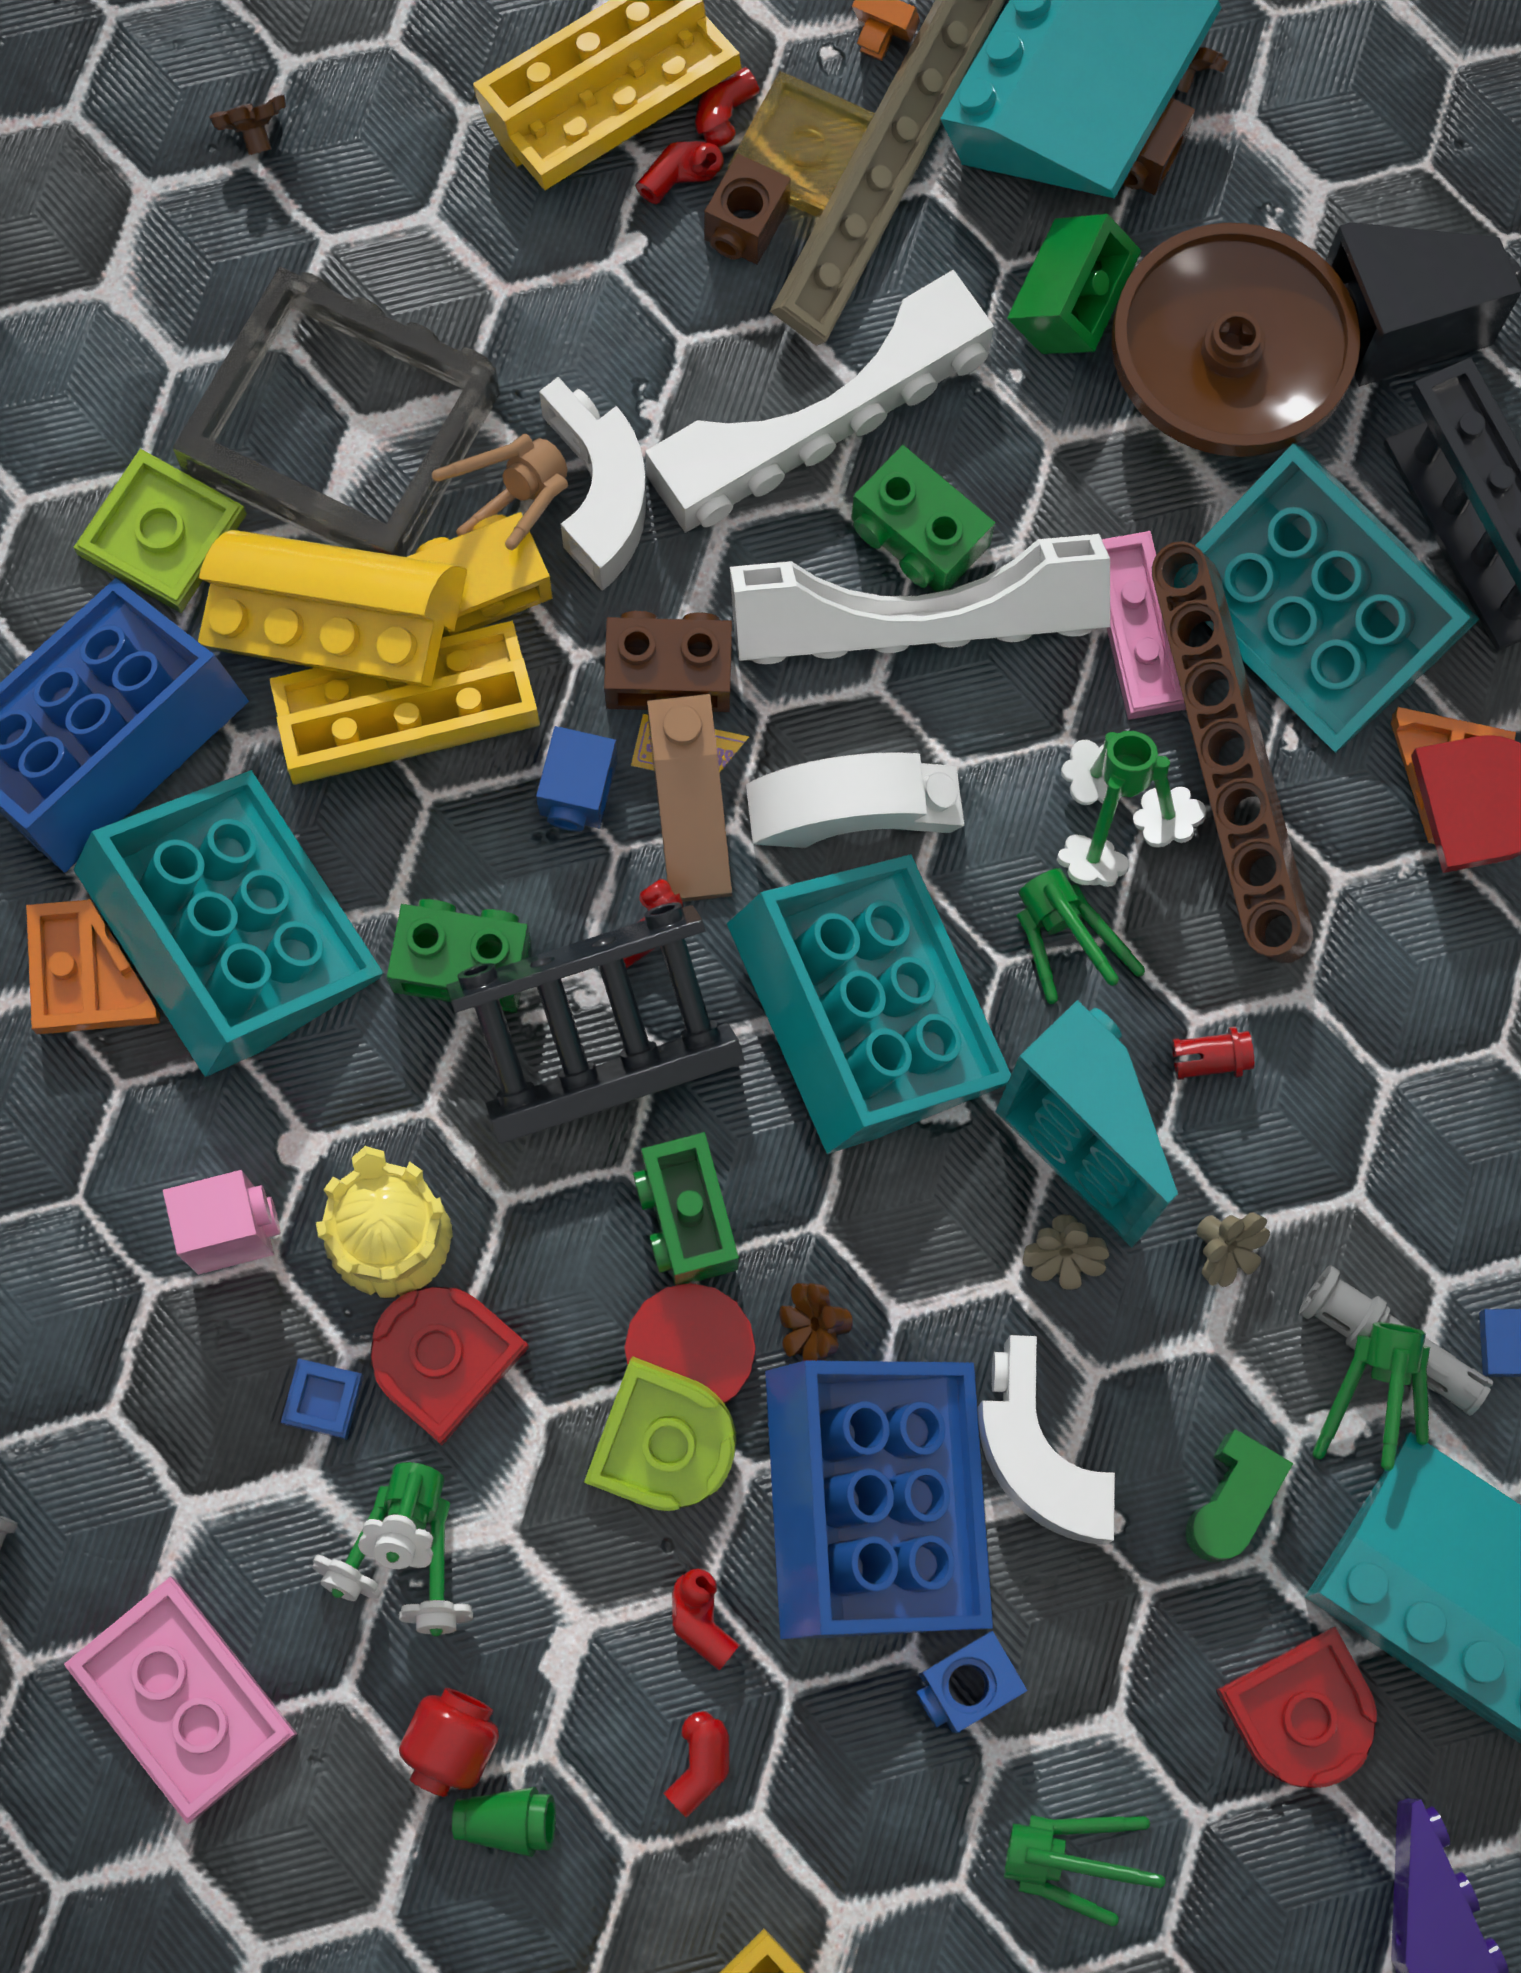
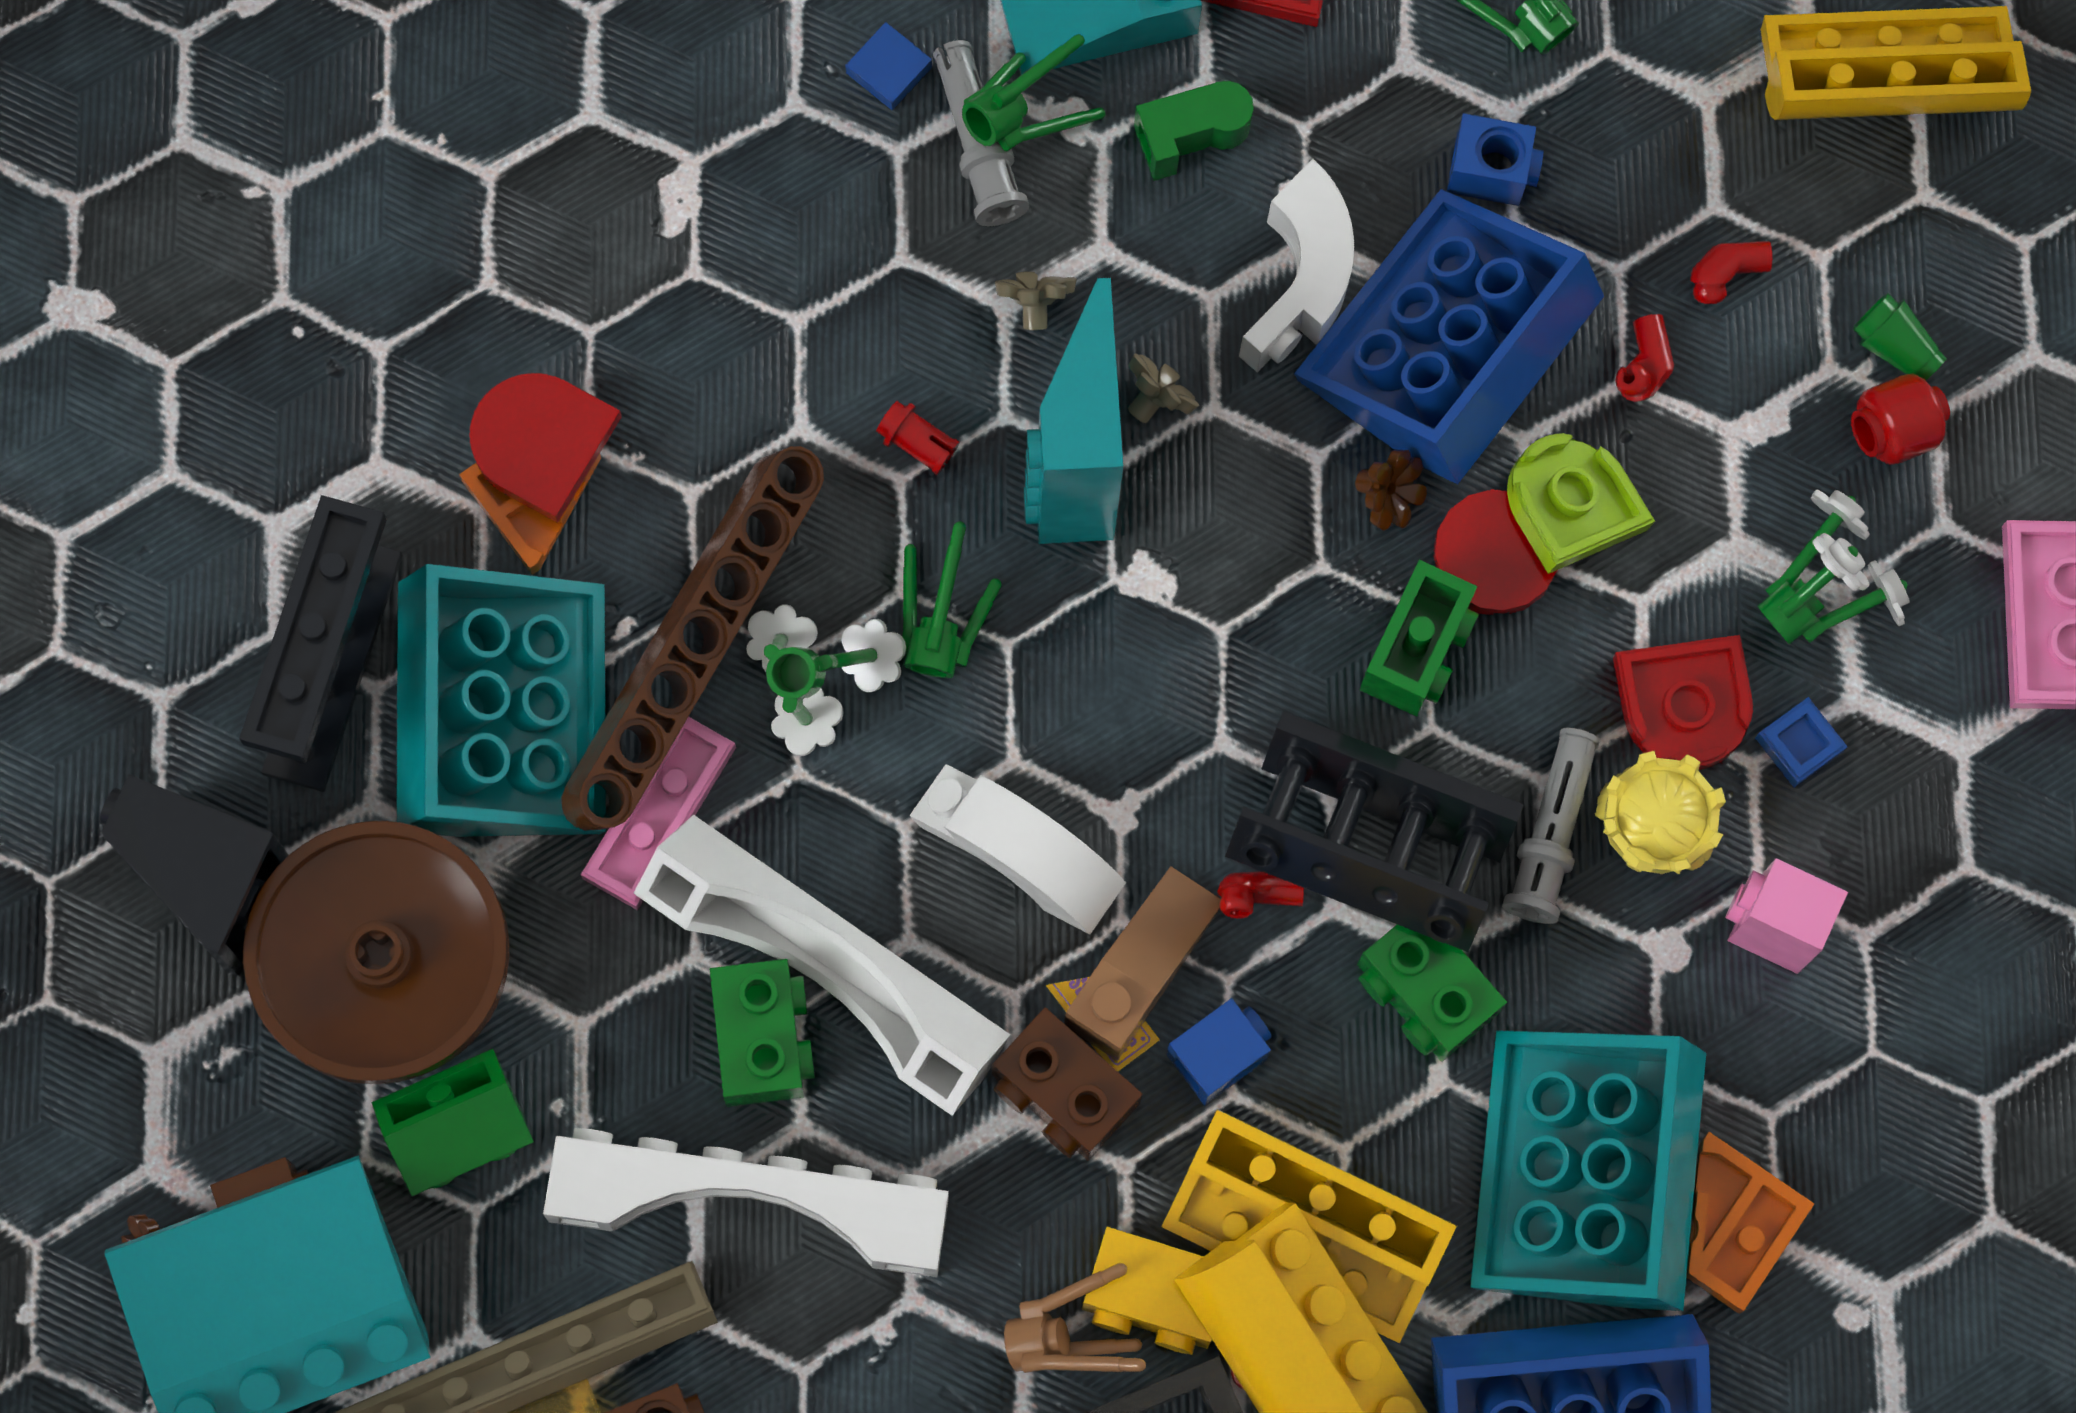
camera: 140 degrees left, 0 degrees up
(452, 1133) = (1538, 853): none -> light grey pin
(612, 517) = (991, 1256): white arch -> none
(867, 1000) = (1142, 688): teal slope -> none

